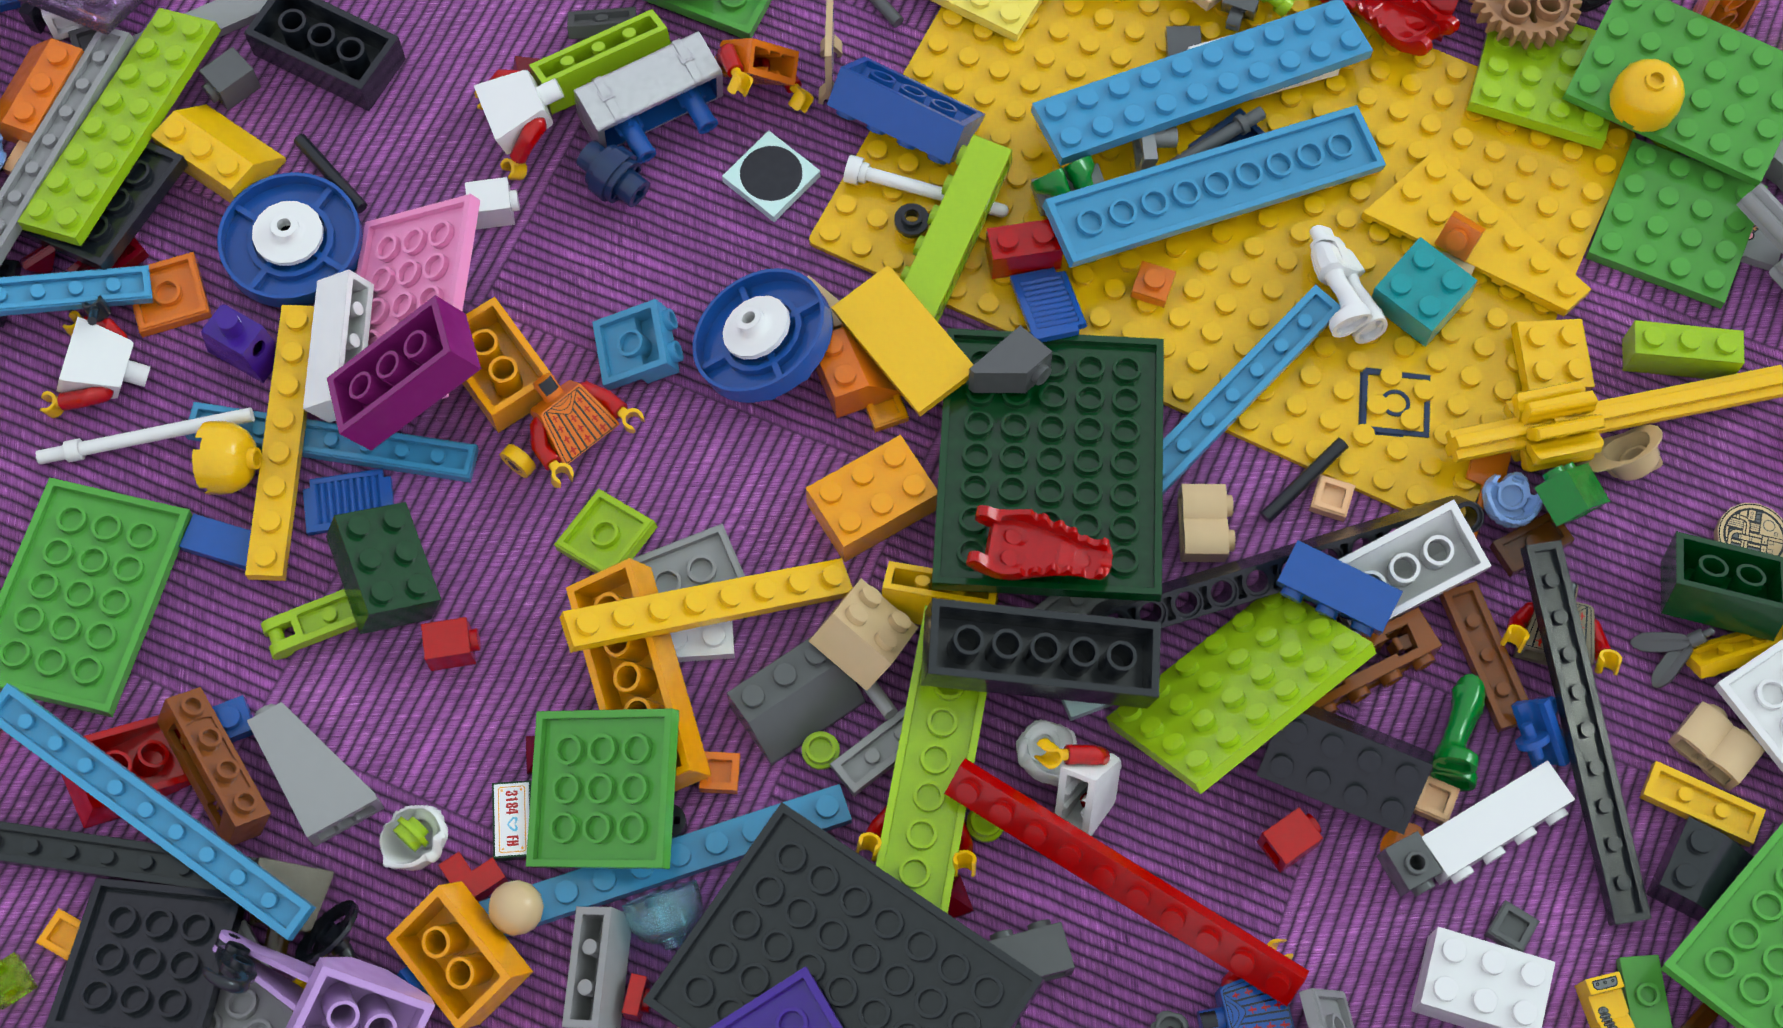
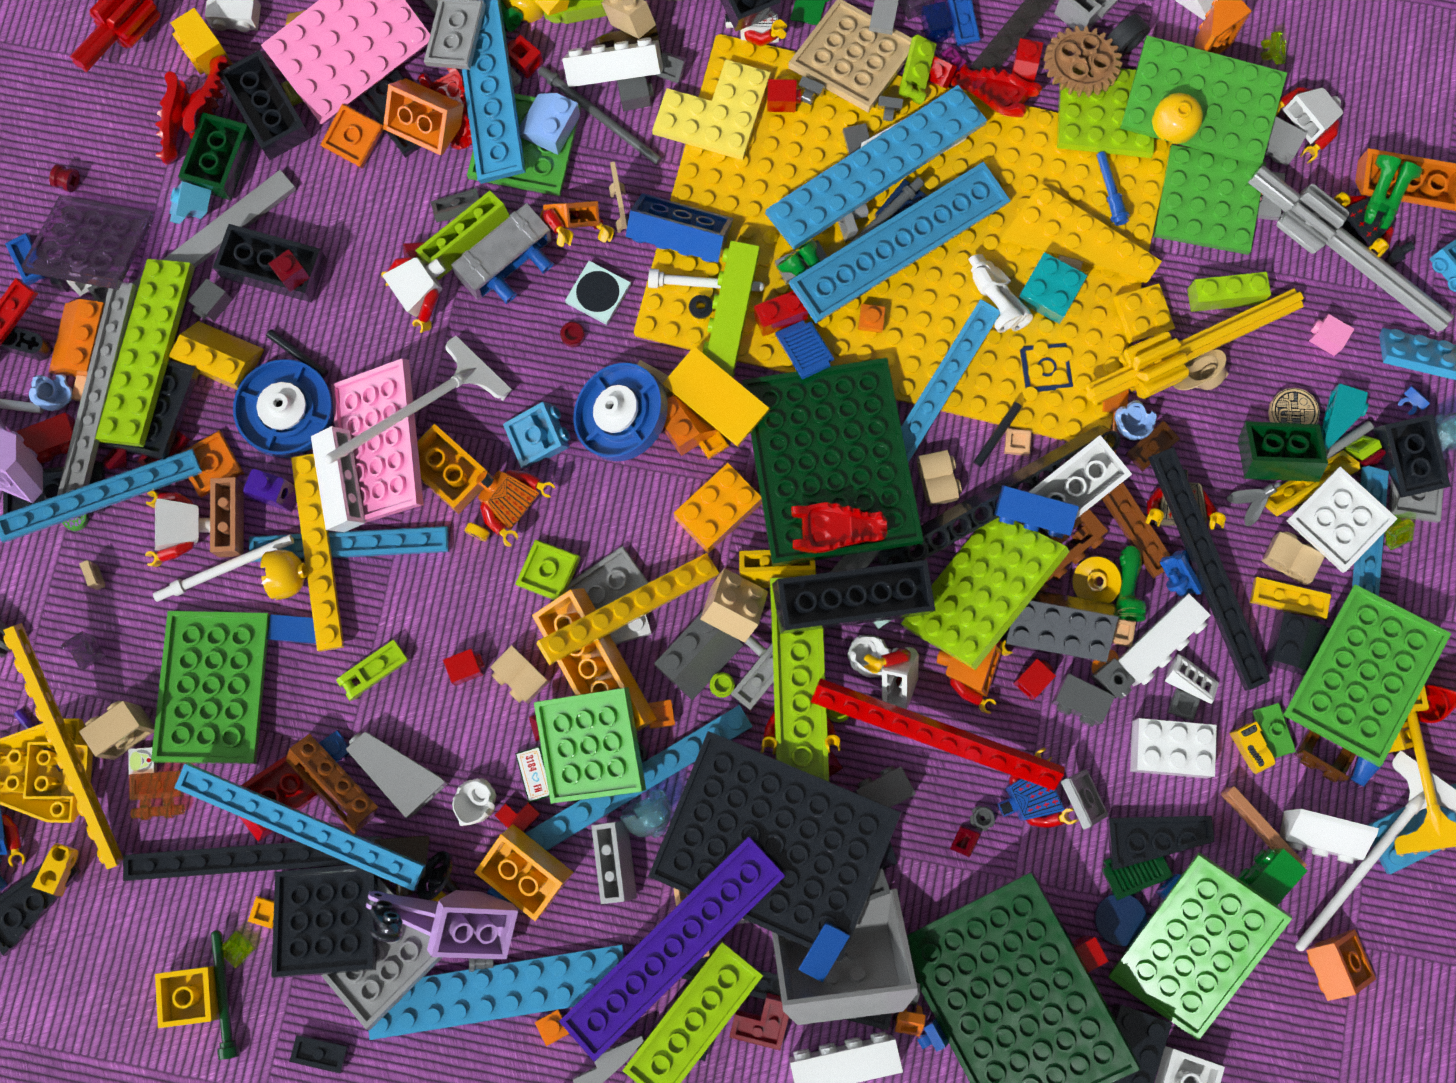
camera: 10 degrees left, 10 degrees up
(97, 311) = (168, 491): black hand -> none
(169, 366) = (226, 517): none -> nougat brick
(342, 495) = (371, 582): blue window -> none
(346, 53) = (289, 270): none -> dark red brick
(383, 567) = (407, 626): dark green brick -> none
(403, 373) = (390, 497): magenta brick -> none
(411, 833) = (472, 799): lime plate -> none
(496, 202) = (415, 351): white brick -> none
(515, 908) = (552, 834): tan piece -> none
(526, 671) = (519, 675): none -> tan brick
(563, 238) = (469, 370): none -> white piece
(613, 173) = (491, 315): dark blue piece -> none
(636, 992) = (642, 872): red plate -> none
(721, 224) = (572, 334): none -> dark red tile
(1012, 365) = (792, 400): dark grey slope -> none
(1198, 819) = (973, 683): none -> orange torso
(1357, 886) = (1082, 700): none -> dark grey brick
(1405, 700) = (1086, 577): none -> yellow dish
(1460, 236) = (1069, 244): orange plate -> none
(1522, 882) = (1178, 676): none -> white slope
(1540, 212) = (1114, 199): none -> blue pin
(1571, 492) = (1173, 409): green brick -> none

